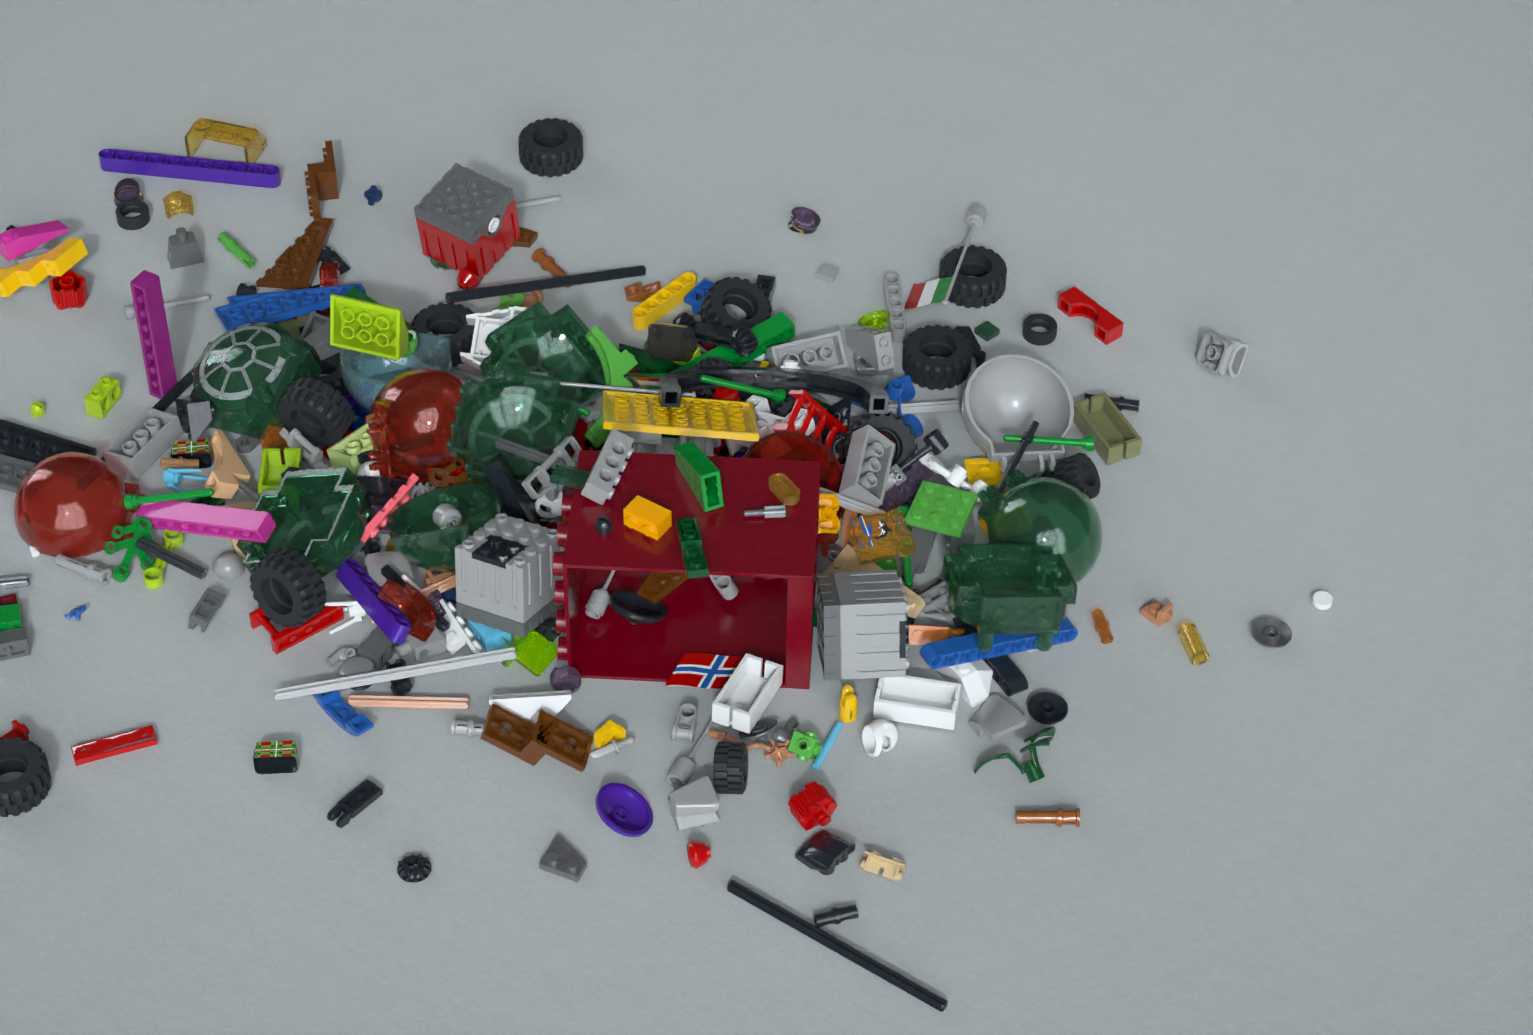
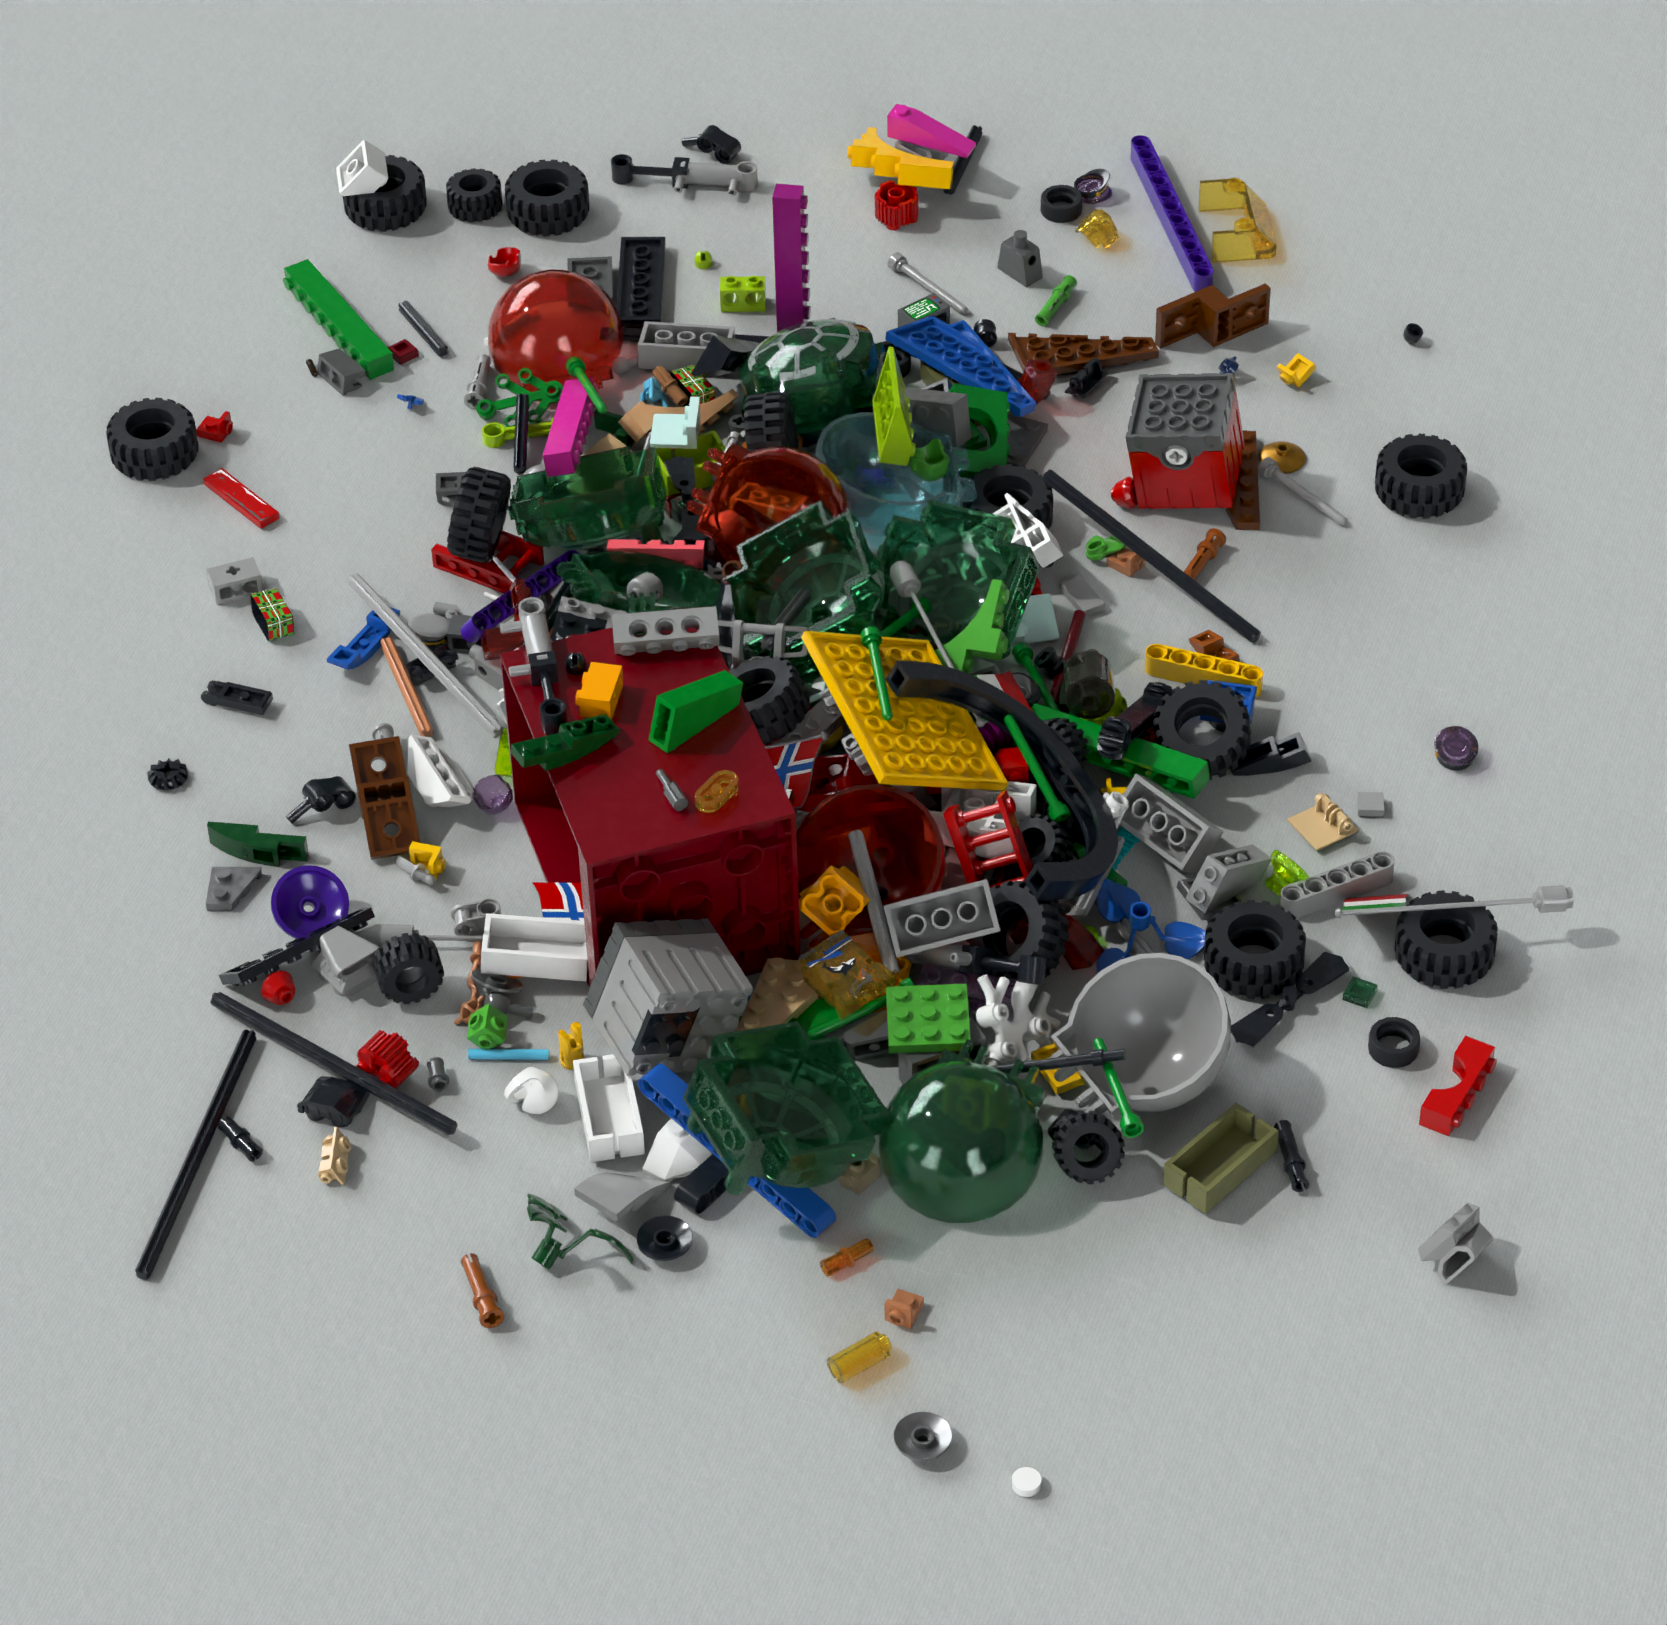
camera: 70 degrees right, 0 degrees up
(203, 316) = (923, 308): none -> brick
(217, 770) = (234, 580): none -> light grey brick
(256, 461) = (677, 429): none -> light aqua bracket
(400, 167) = (1296, 370): none -> yellow bracket
(402, 107) = (1412, 333): none -> black hinge
(506, 778) = (321, 794): none -> black beam
(530, 834) = (261, 848): none -> dark green slope
(600, 540) = (541, 660): none -> piece
(617, 401) = (872, 639): none -> green piece
(669, 840) = (247, 972): none -> black wing
(788, 842) = (334, 1063): none -> black axle
(833, 788) = (438, 1078): none -> dark grey pin
(834, 297) = (1323, 823): none -> tan hinge

